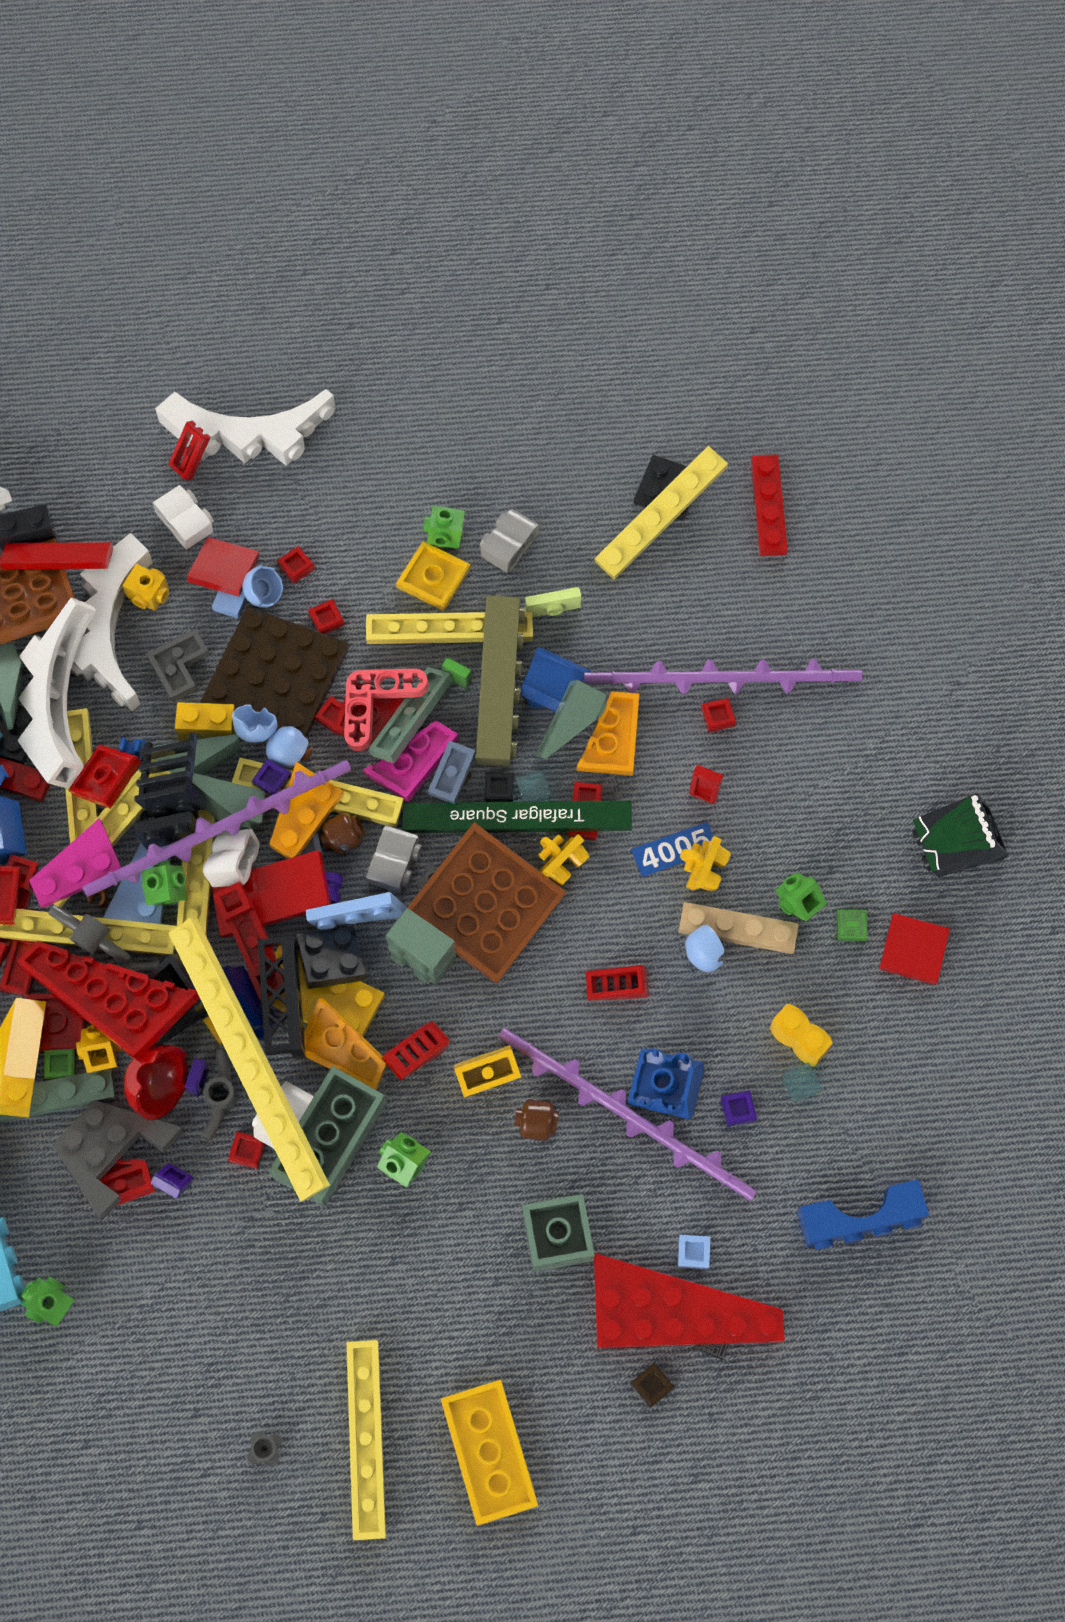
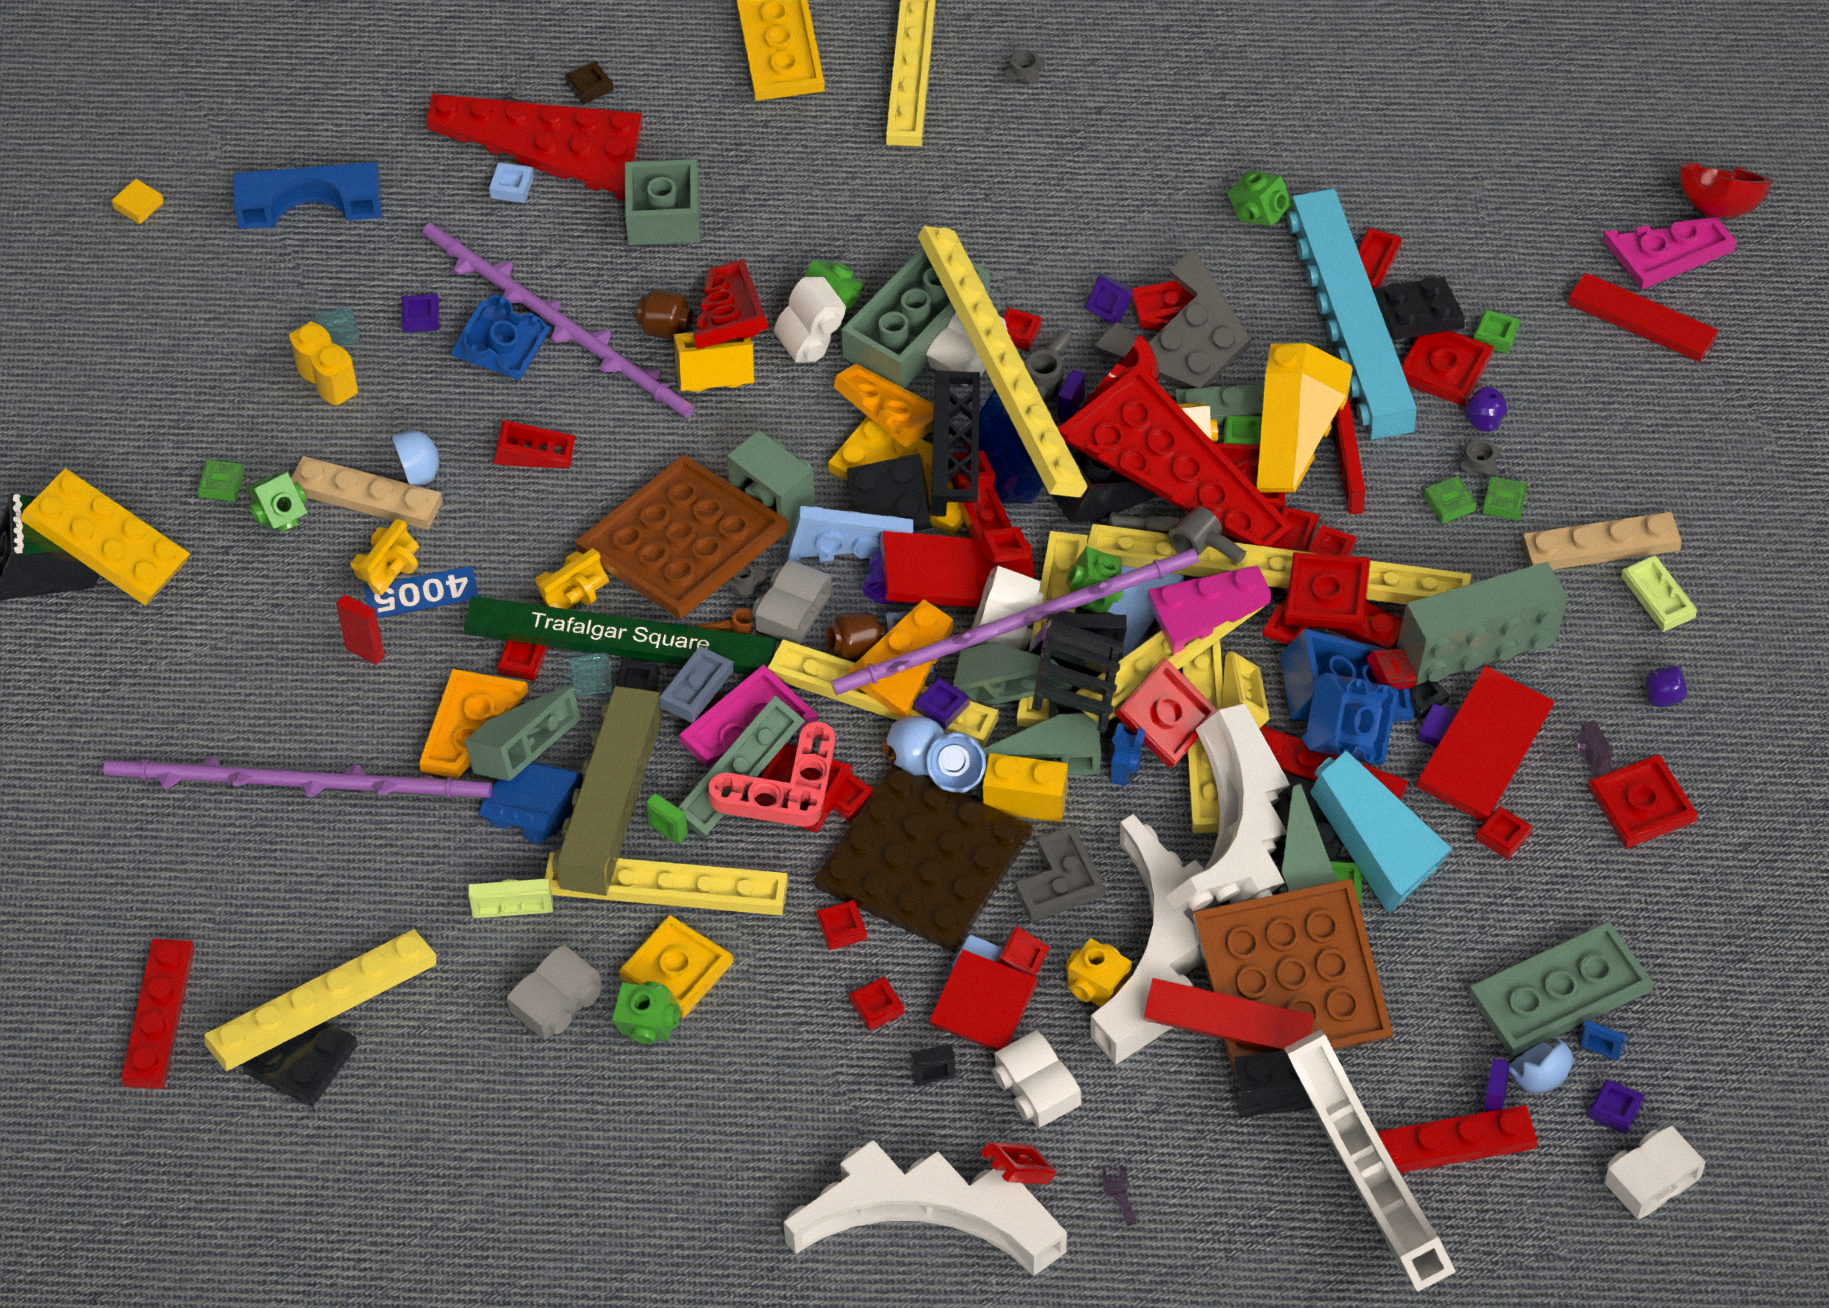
camera: 170 degrees left, 15 degrees down
(52, 819) = (1248, 690): none -> light yellow slope
(126, 456) = (1118, 1190): none -> clear purple hand
(200, 604) = (1023, 952): none -> red tile
(252, 518) = (933, 1064): none -> black tile
(262, 586) = (930, 960): light blue hair -> none
(412, 1112) = (809, 319): none -> white brick
(430, 1038) = (782, 388): red slope -> none
(438, 842) = (738, 623): none -> dark orange hand
(477, 1104) = (729, 306): none -> red wing
(718, 715) = (317, 740): red tile -> none
(914, 949) = (152, 448): red tile -> none
(919, 839) = (105, 536): none -> yellow plate
(1006, 1198) = (137, 201): none -> yellow tile

